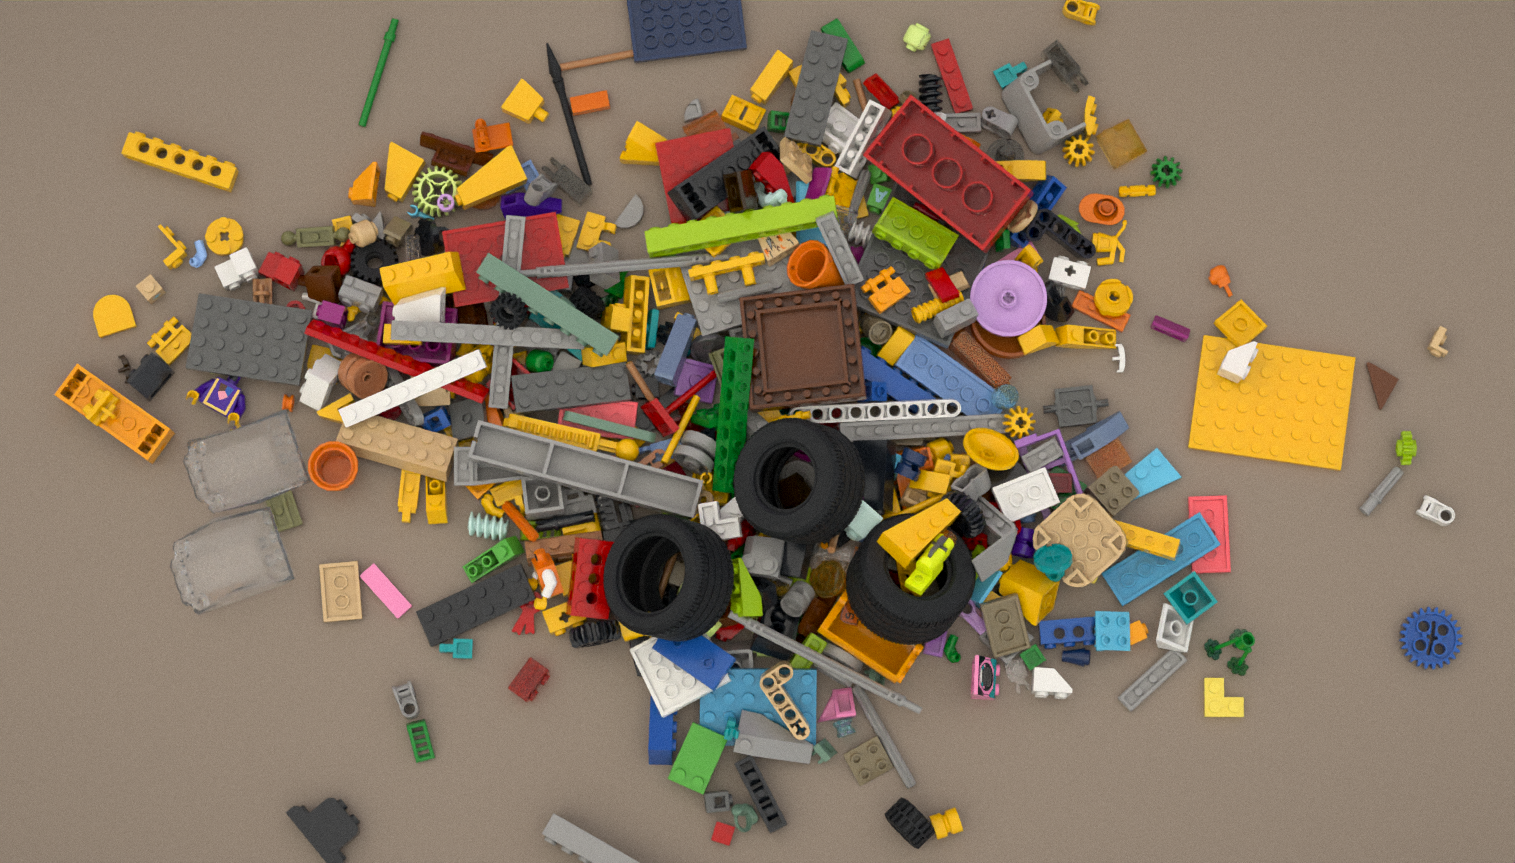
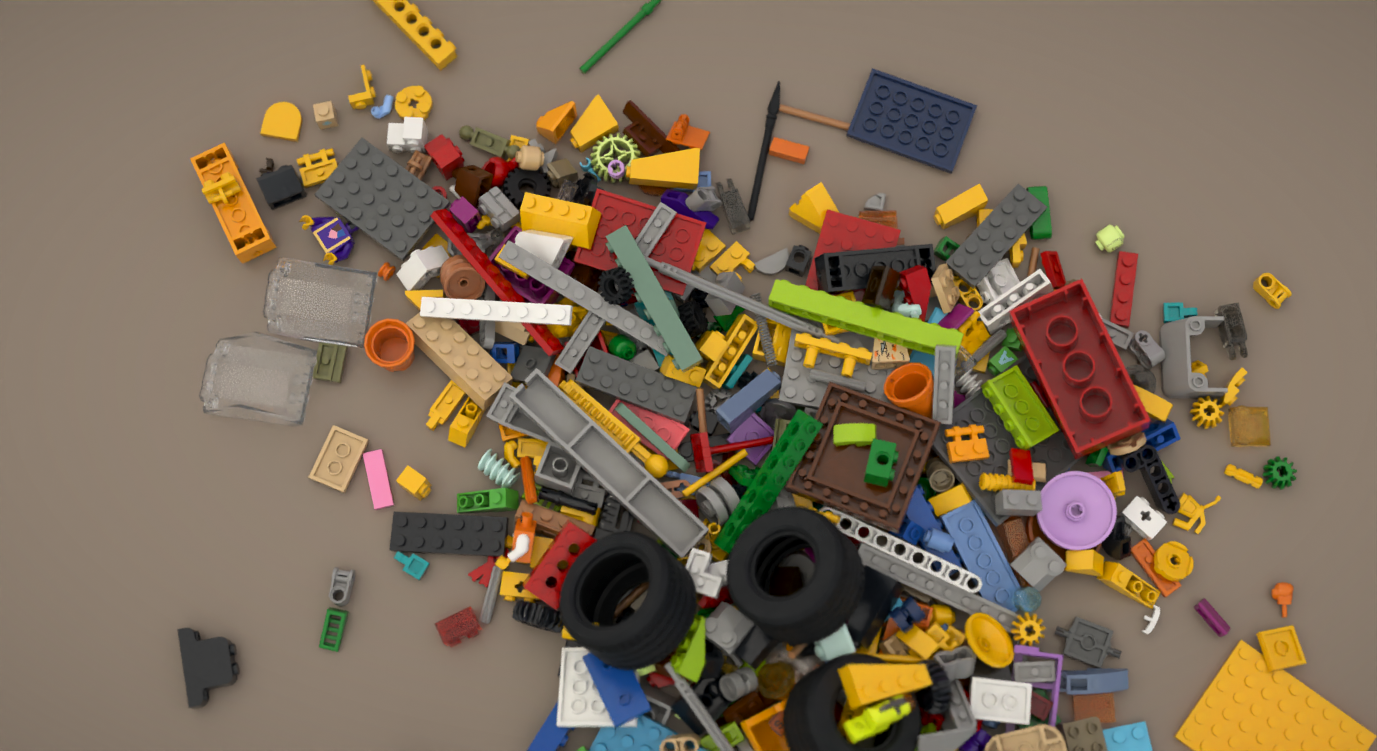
camera: 30 degrees right, 5 degrees down
(422, 577) = (414, 483): none -> yellow brick
(525, 104) = (731, 122): yellow torso -> none
(542, 637) = (491, 595): none -> light grey axle
(652, 208) = (795, 267): none -> black brick
(655, 284) = (765, 330): none -> light grey piece
(734, 110) = (912, 220): yellow piece -> none
(786, 331) = (857, 433): none -> lime slope
(819, 335) = (878, 473): none -> green brick
(904, 386) = (938, 540): none -> medium blue brick
(929, 91) = (1098, 288): black piece -> none
(999, 362) = (1038, 564): none -> light grey slope
(1101, 209) = (1203, 475): orange piece -> none
(1236, 361) = (1261, 682): white slope -> none

